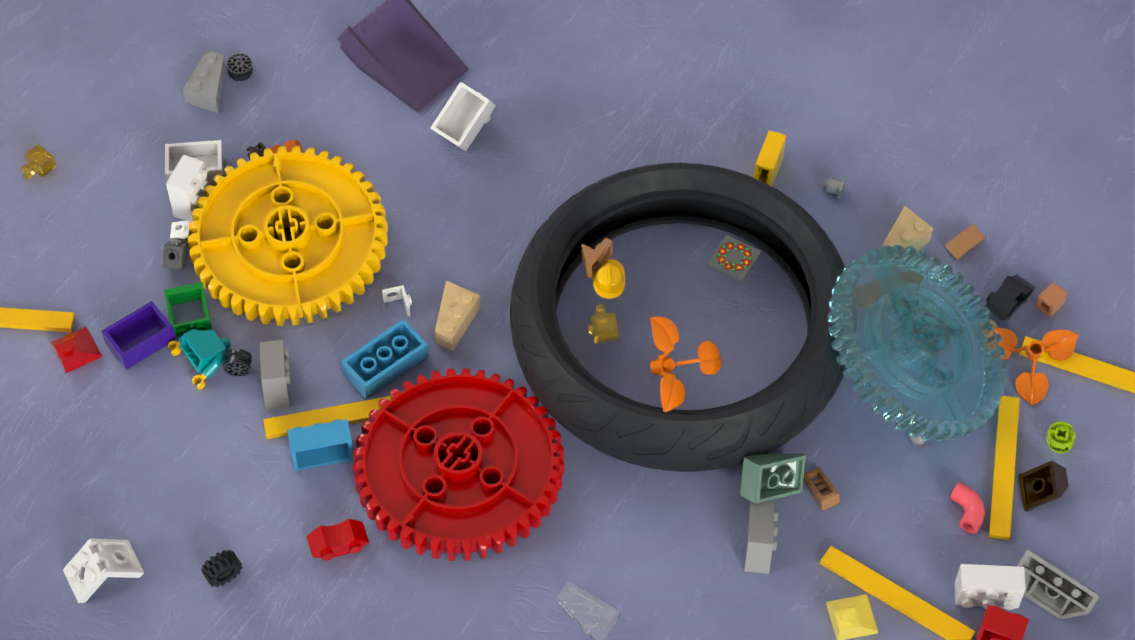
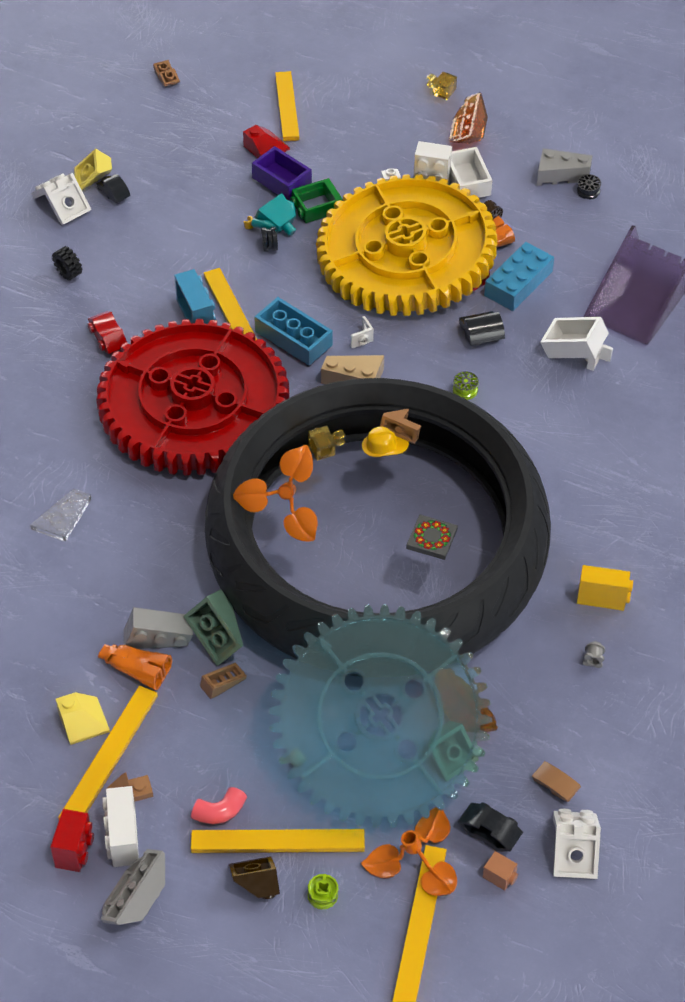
camera: 80 degrees right, 5 degrees down
(66, 530) = (92, 168): none -> light yellow slope
(103, 508) = (114, 187): none -> black brick
(111, 150) = (469, 121): none -> clear orange wedge
(175, 254) = (366, 175): dark grey brick -> none
(275, 374) = (263, 263): light grey wedge -> none
(355, 145) = (519, 276): none -> dark azure brick
(417, 194) = (483, 327): none -> black brick
(488, 218) = (465, 386): none -> lime wheel
(795, 558) = (144, 666): none -> orange piece
(909, 231) = (540, 720): tan wedge -> none
(939, 583) = (141, 786): none -> medium nougat slope
(1028, 230) = (573, 833): none -> white bracket

